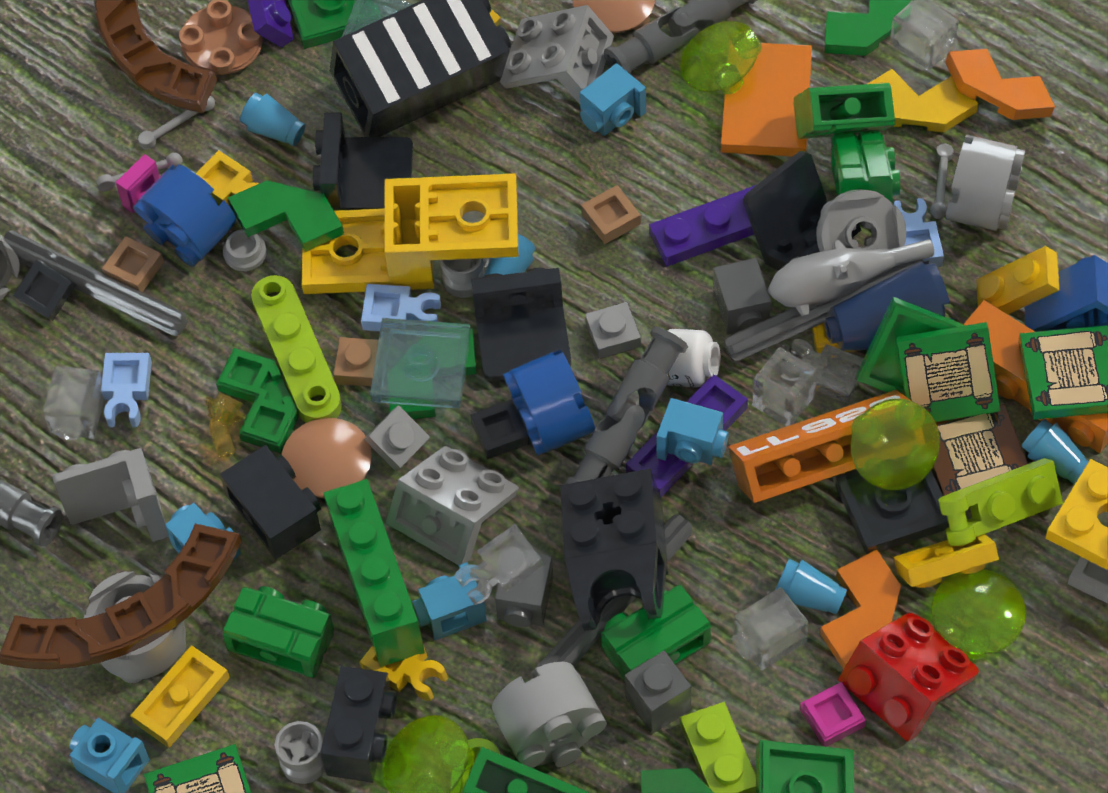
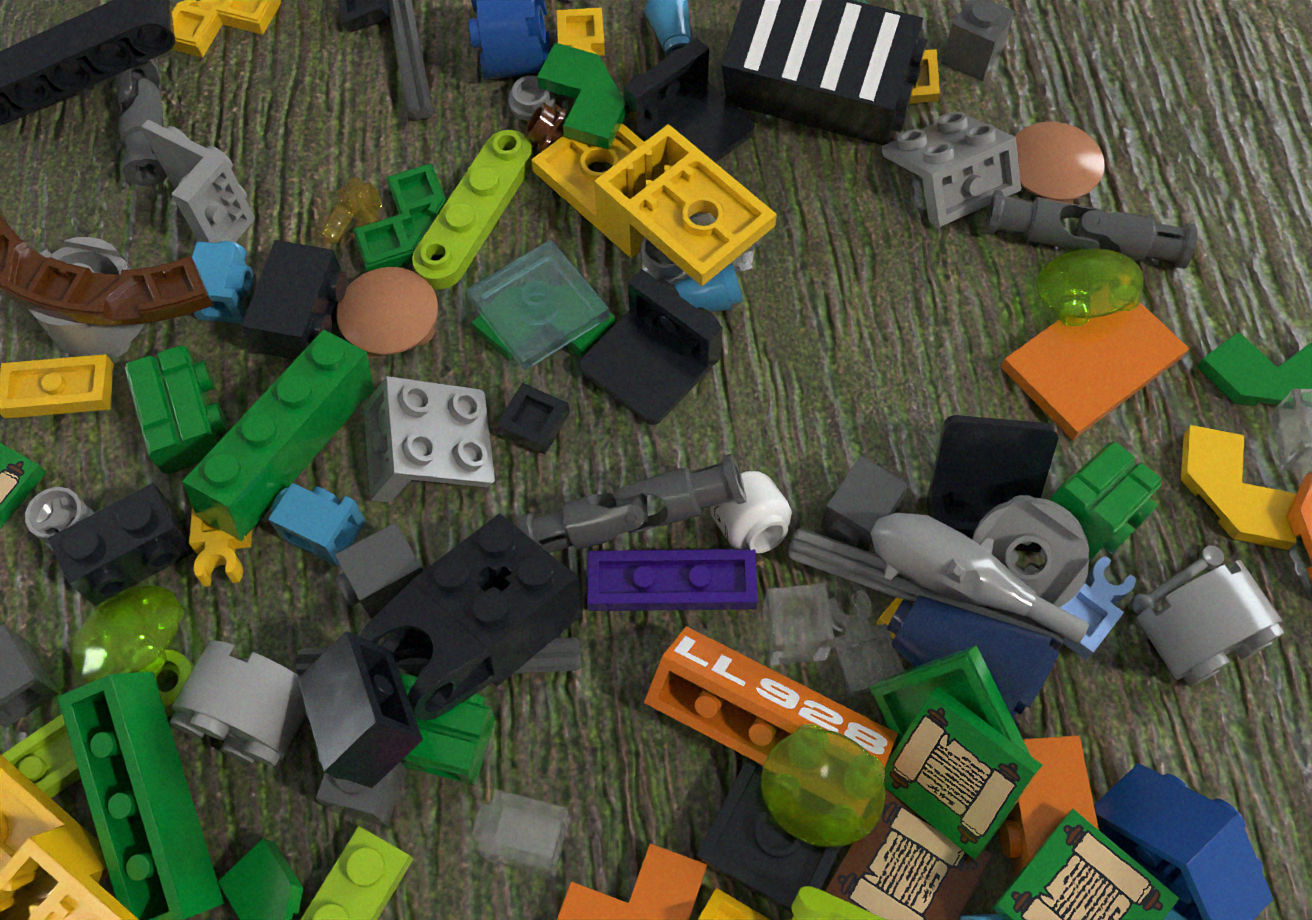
camera: 45 degrees right, 5 degrees up
(74, 402) = (274, 97): clear brick -> none
(124, 381) = (326, 115): light blue plate -> none
(133, 264) = (442, 38): medium nougat plate -> none
(282, 256) = (545, 126): none -> reddish brown plate
(355, 361) = (499, 252): medium nougat plate -> none
(396, 303) = (581, 243): light blue plate -> none
(397, 438) = (451, 346): light grey plate -> none
(505, 560) = (368, 533): clear plate -> none
(549, 402) = (586, 433): blue brick -> none
(611, 214) = (838, 330): medium nougat plate -> none
(612, 100) = (950, 237): dark azure brick -> none
(613, 330) = (726, 427): light grey plate -> none
(628, 635) = (358, 710): none -> black brick
(691, 433) = (659, 581): dark azure brick -> none
(701, 228) = (897, 412): dark purple plate -> none
(810, 587) = (605, 833): dark azure cone -> none
(843, 110) = (1148, 429): green brick -> none
(1020, 281) = (1139, 755): yellow plate -> none

